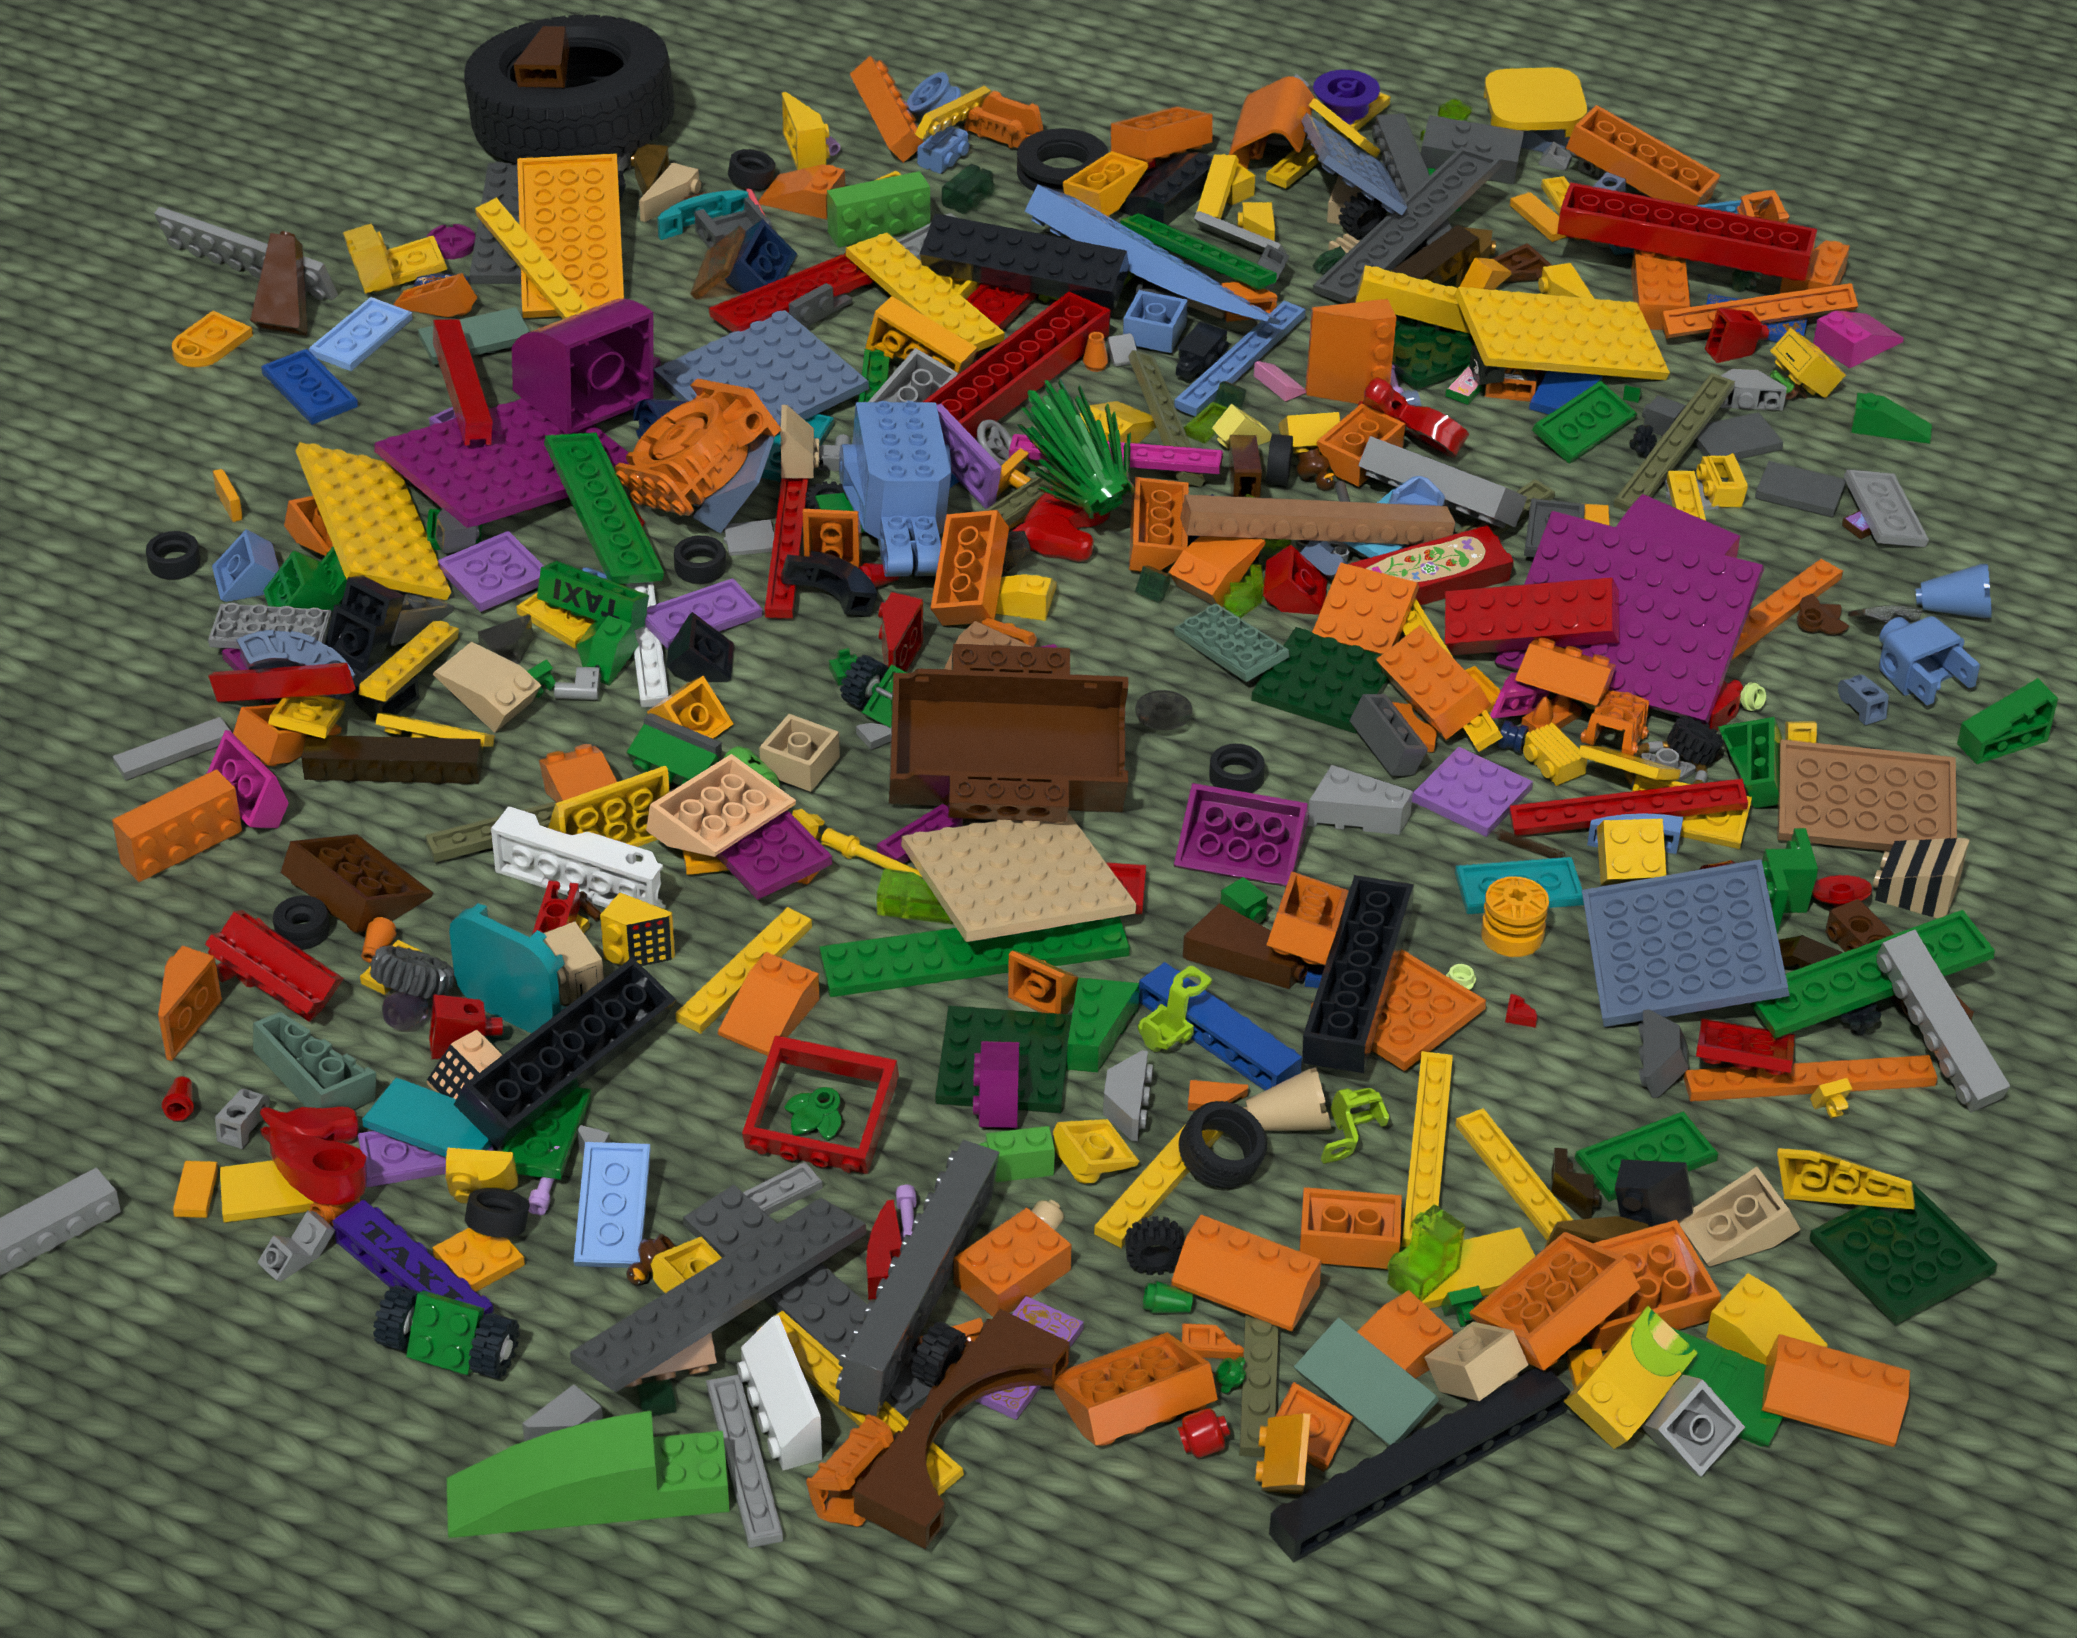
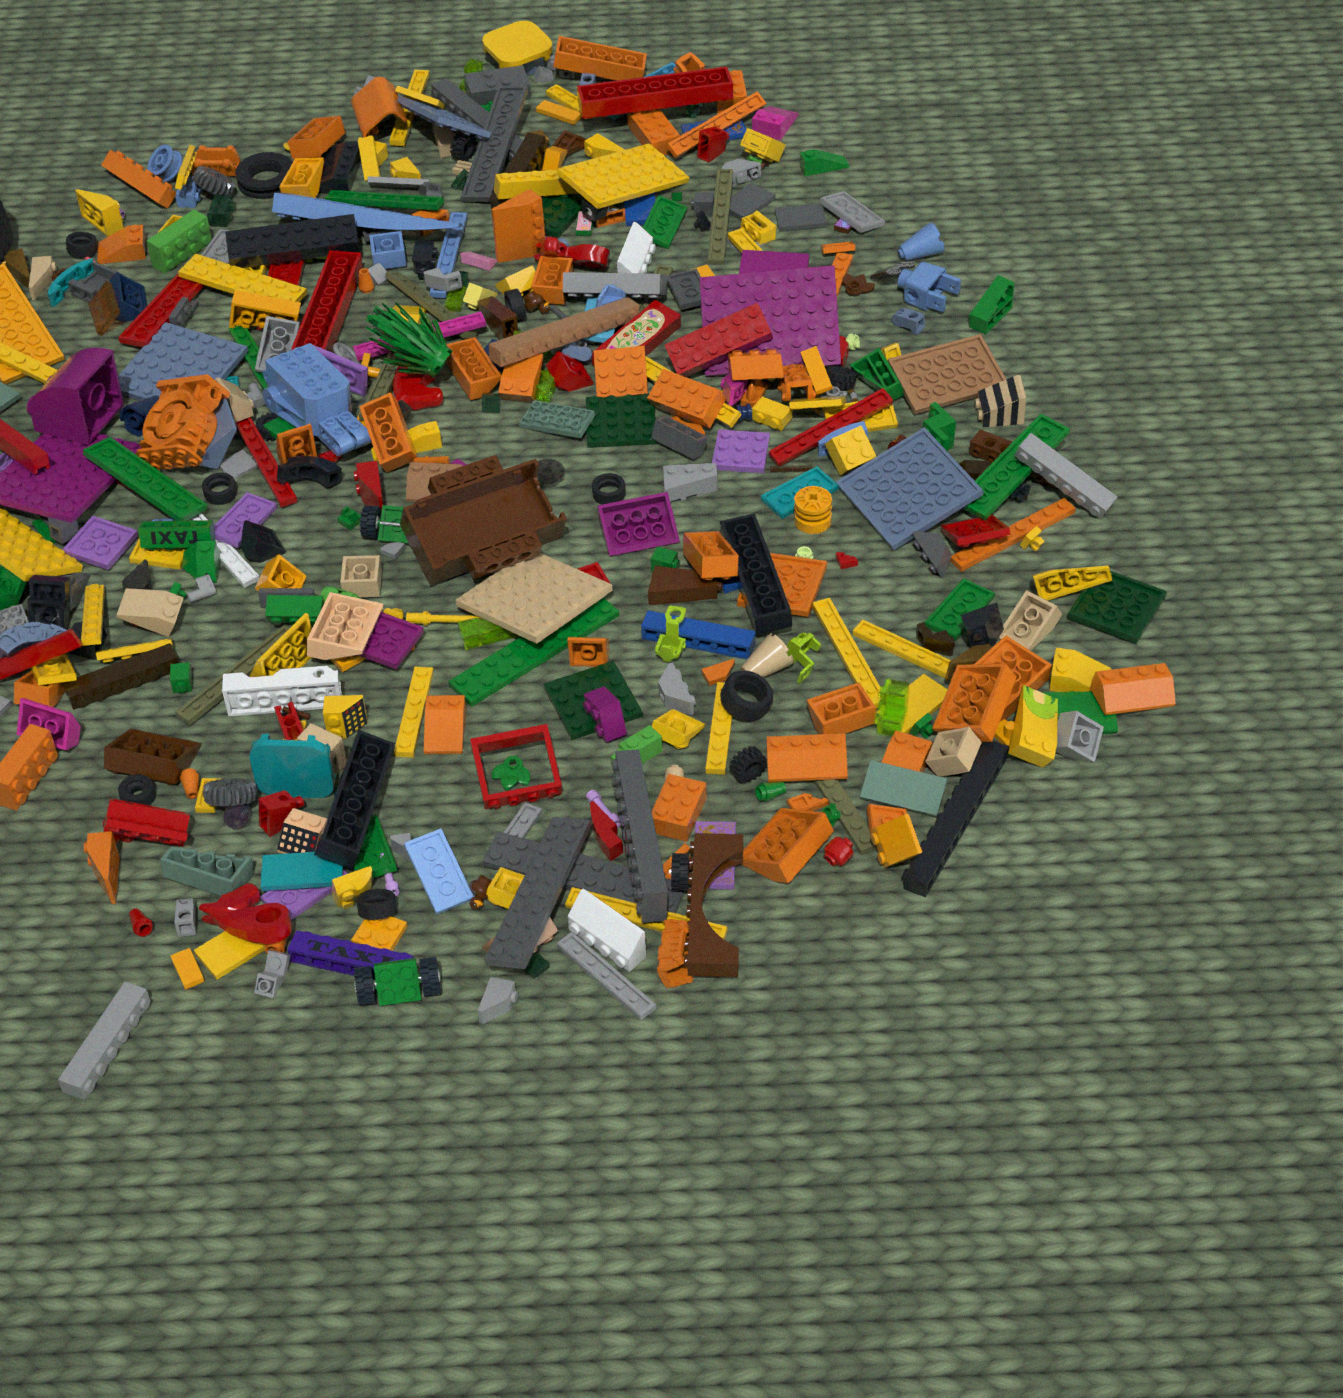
camera: 25 degrees left, 5 degrees up
(466, 792) = (181, 677): none -> green brick
(575, 772) = (245, 642): orange slope -> none
(590, 1477) = (532, 1023): bright green slope -> none
(932, 821) = (462, 586): magenta plate -> none
(980, 144) = (213, 181): none -> dark grey gear
(1098, 1019) = (629, 656): green wedge -> none
(1200, 392) = (435, 279): none -> light grey slope
(1347, 93) = (408, 75): dark purple piece -> none
(1507, 448) = (636, 251): none -> white slope
(1657, 715) = (816, 370): none -> light orange tile
(1826, 552) = (837, 247): none -> orange tile
(1841, 889) = (968, 427): red dish -> none

